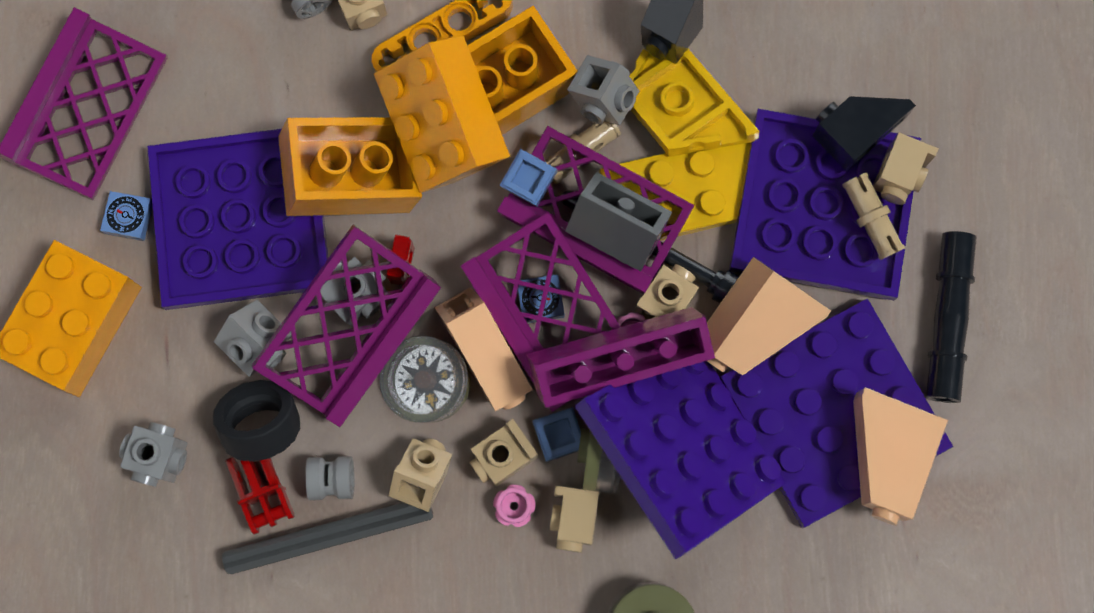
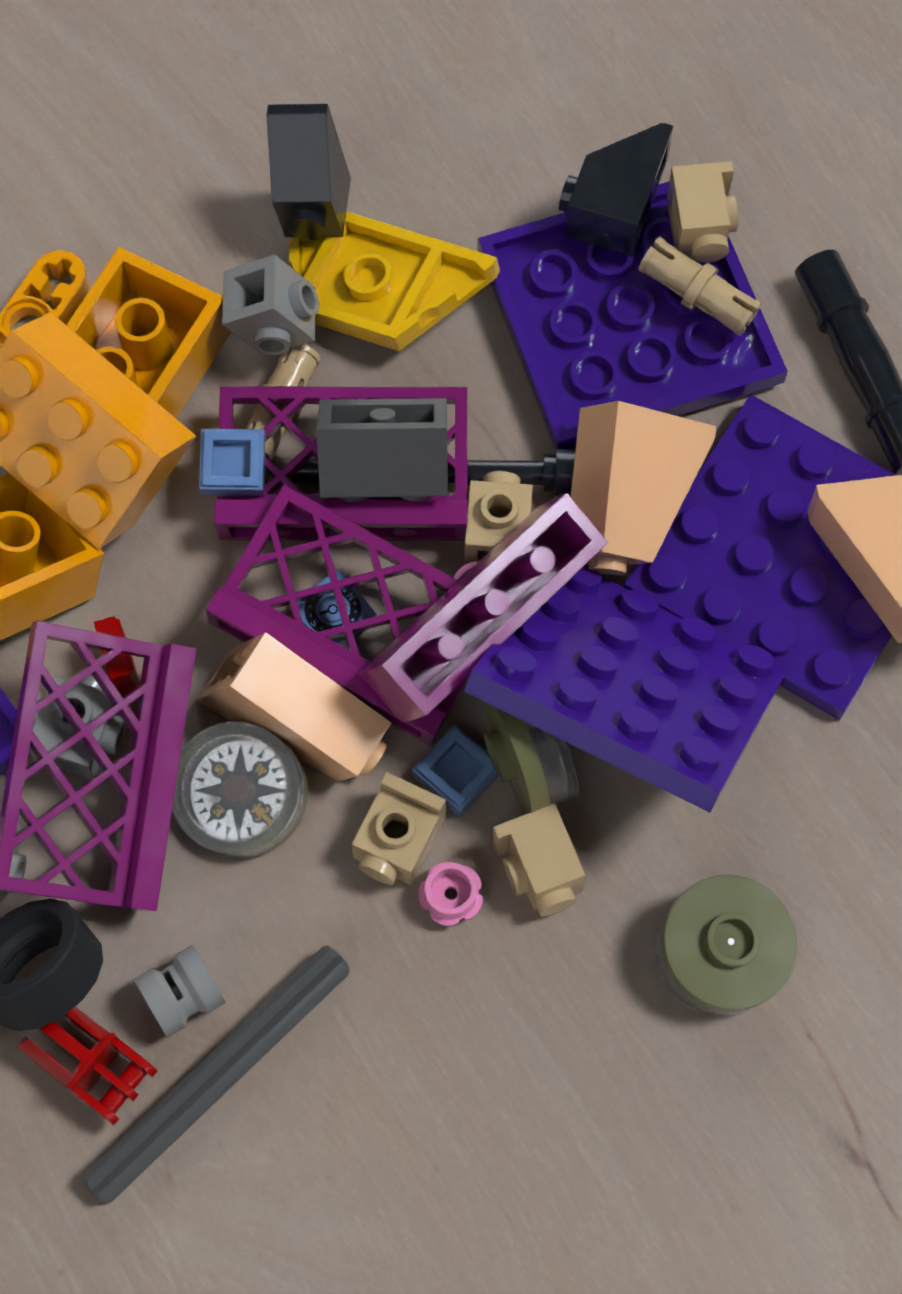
camera: 30 degrees left, 10 degrees down
(424, 466) = (296, 898): tan brick -> none
(706, 178) = (462, 350): yellow wing -> none

